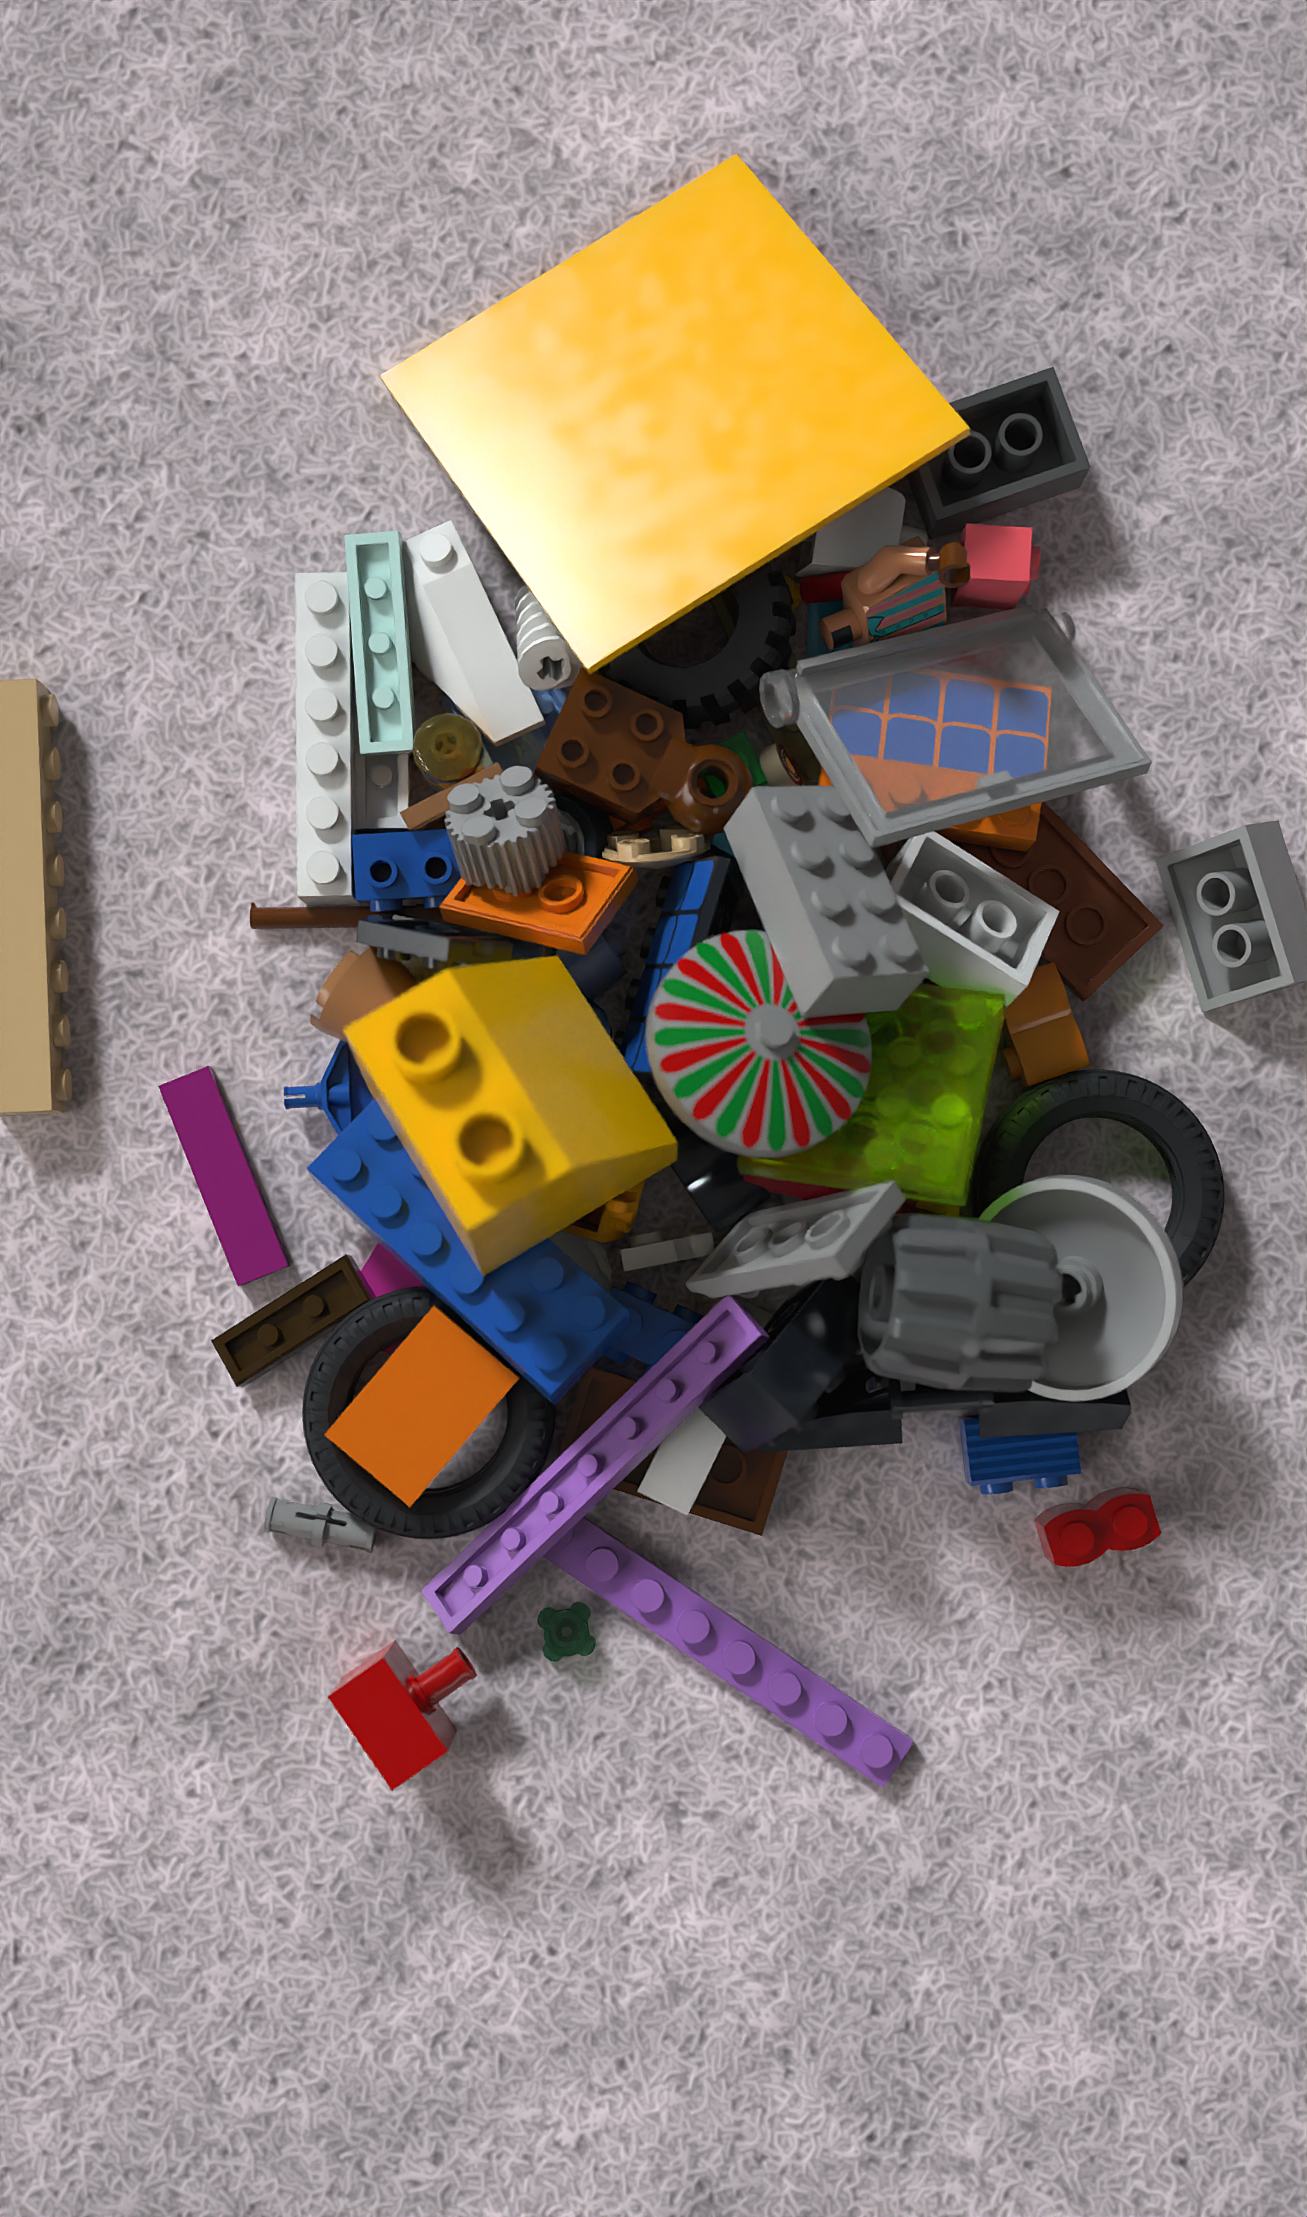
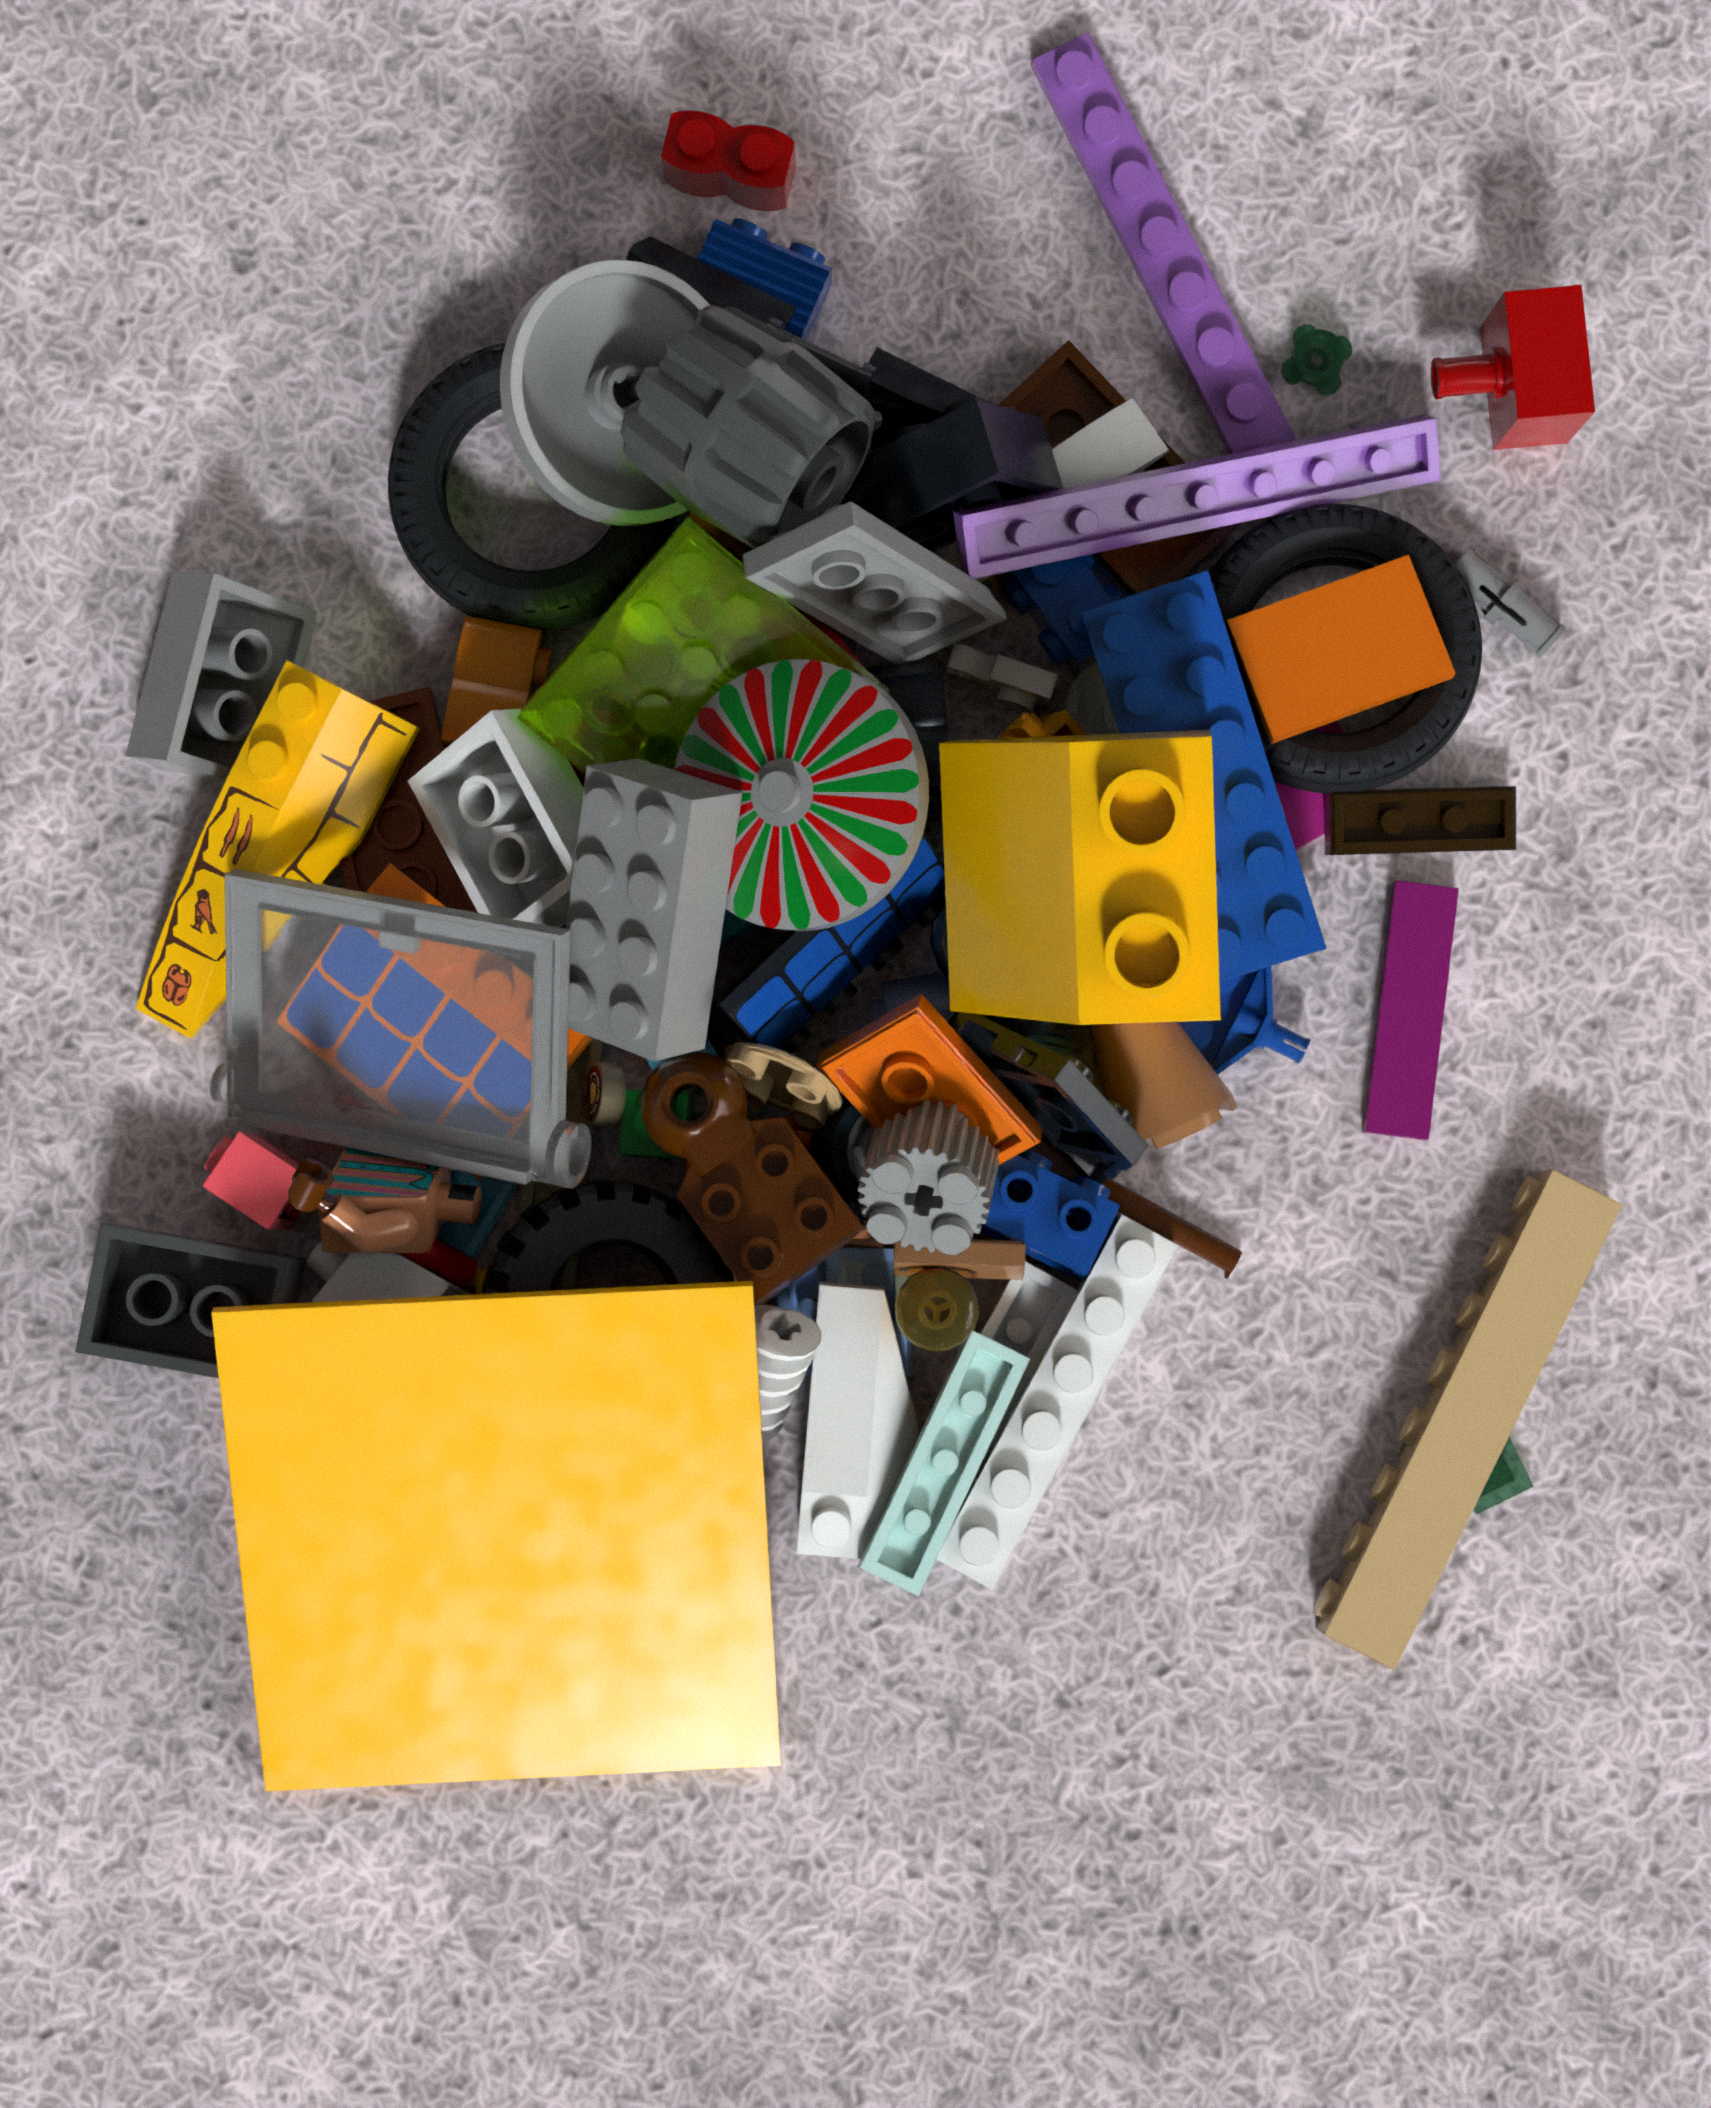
camera: 155 degrees left, 0 degrees up
(1135, 836) = (285, 811): none -> yellow wedge

